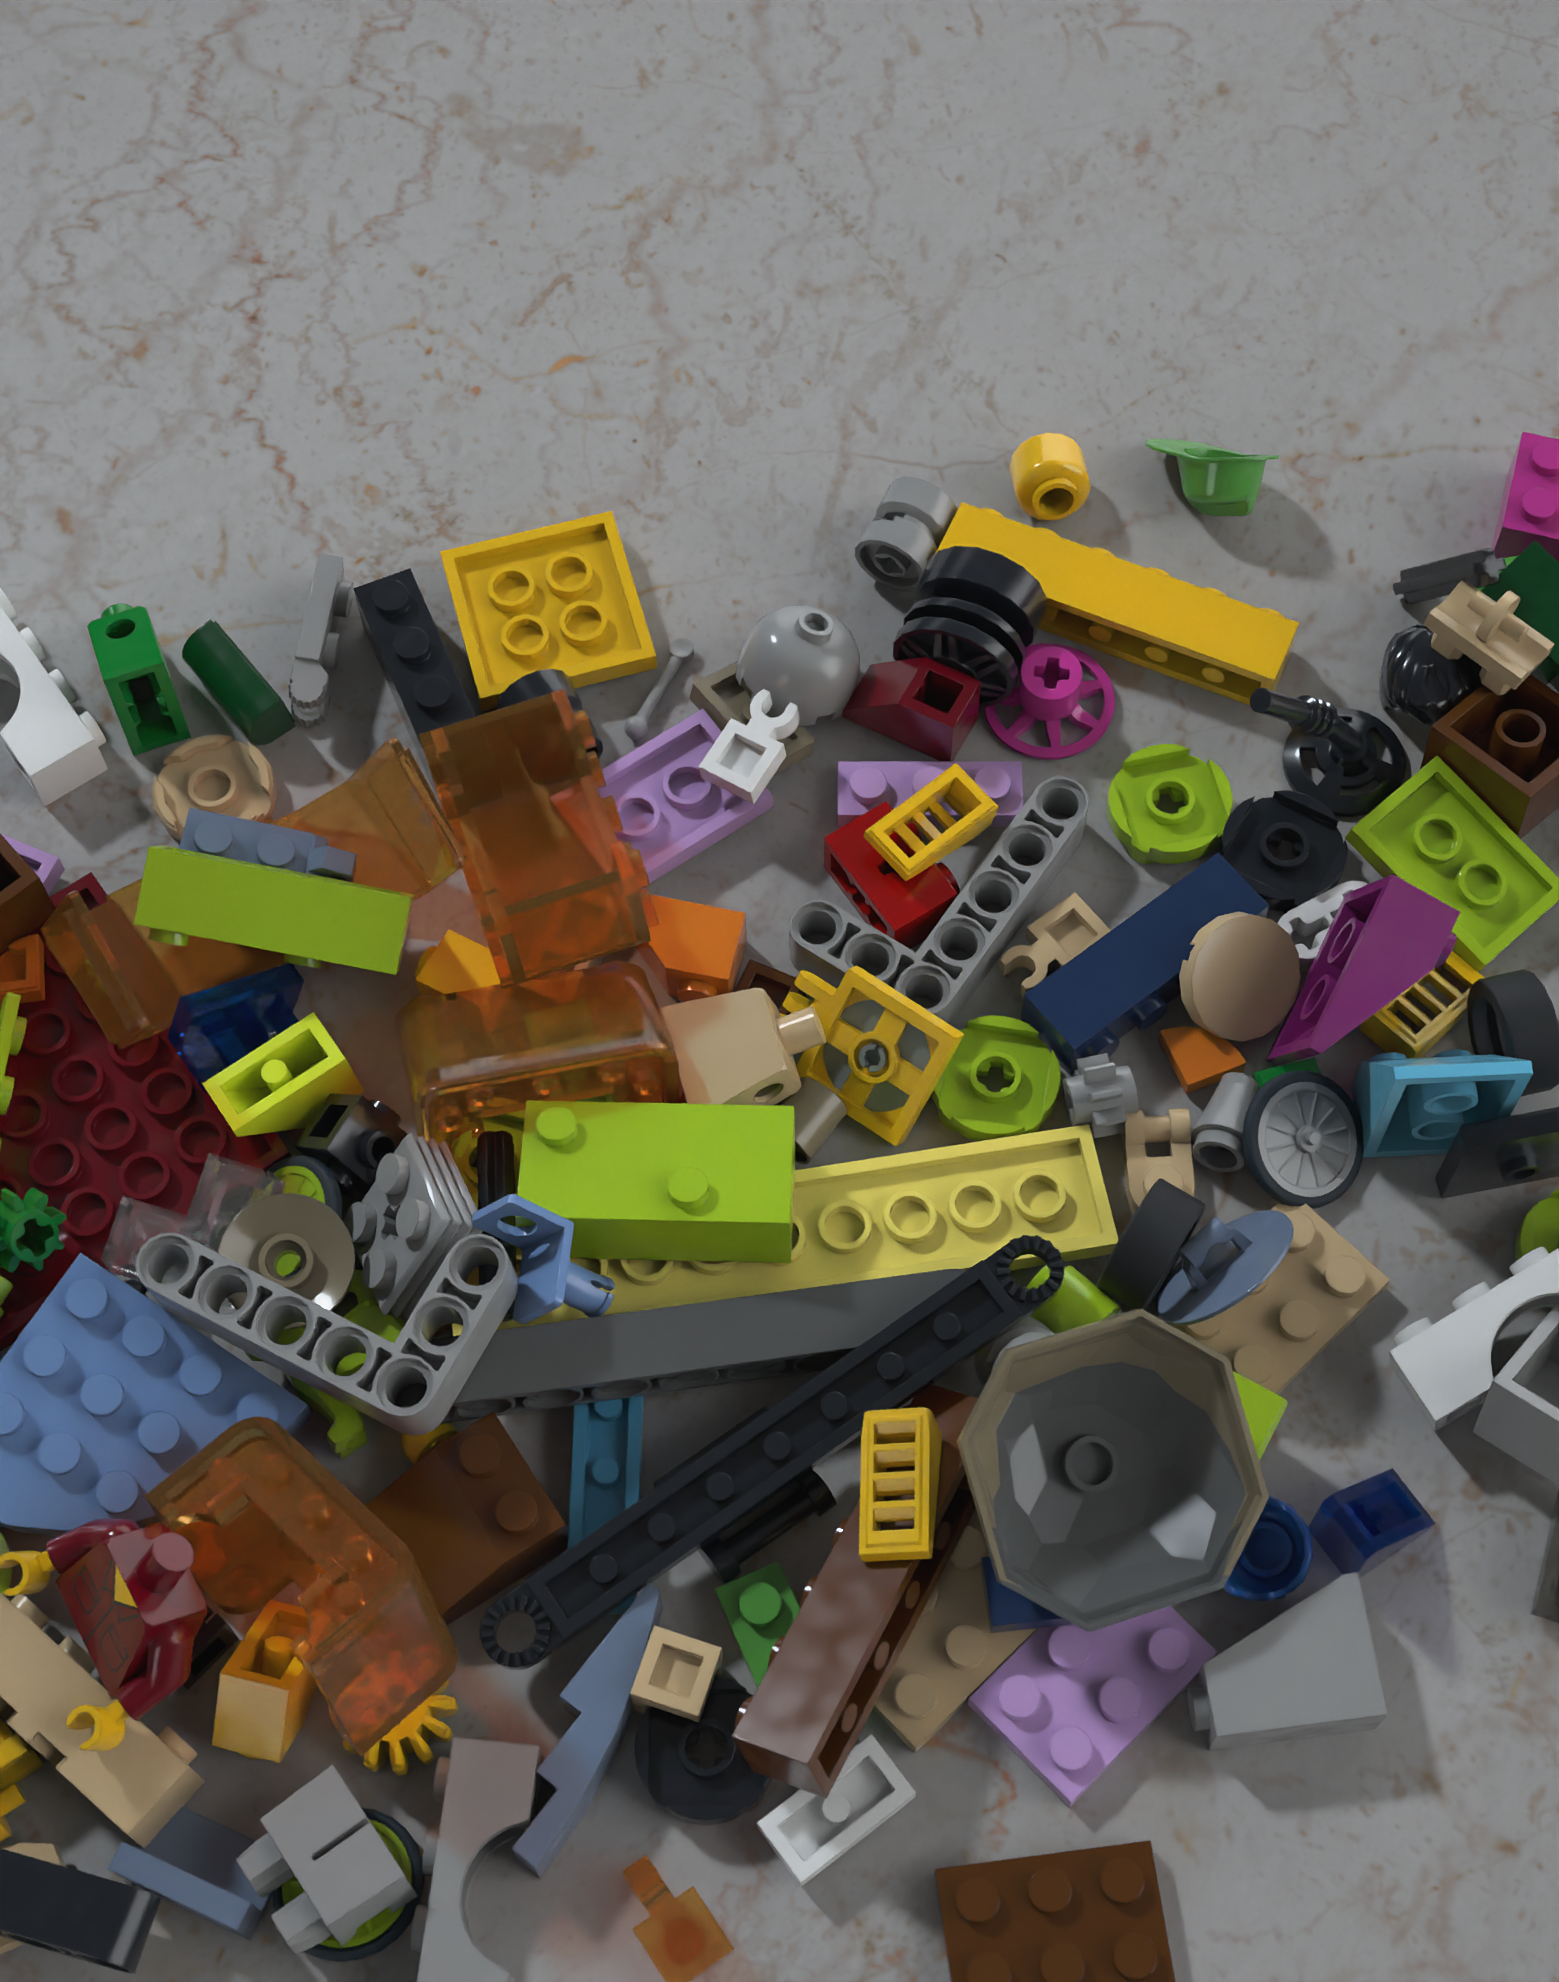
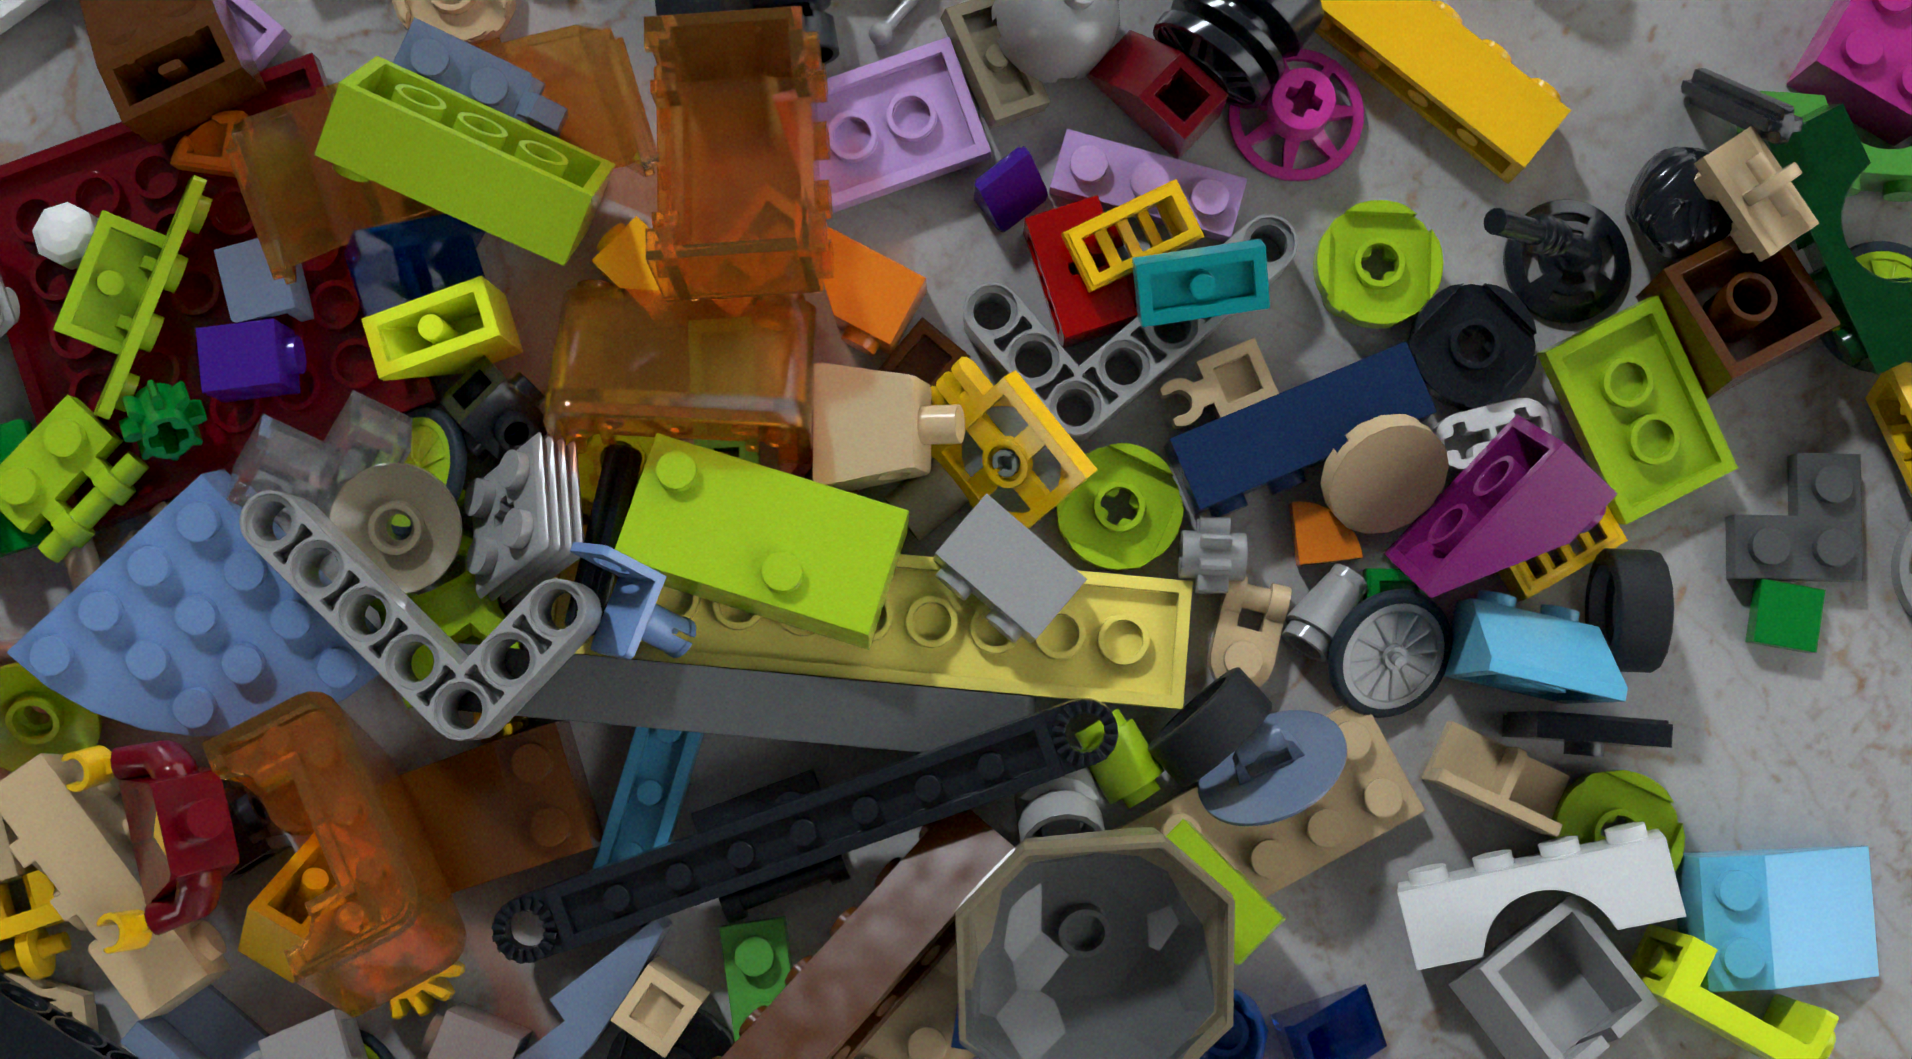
camera: 15 degrees right, 20 degrees up
(93, 1072) = (252, 290): none -> sand blue panel
(98, 1153) = (250, 360): none -> dark purple brick
(749, 754) = (975, 106): white plate -> none
(799, 826) = (1010, 189): none -> dark purple slope
(898, 1440) = (884, 880): yellow slope -> none
(906, 1149) = (1006, 571): none -> light grey brick
(1008, 843) = (1201, 282): none -> teal plate
(1449, 1233) = (1497, 778): none -> tan panel

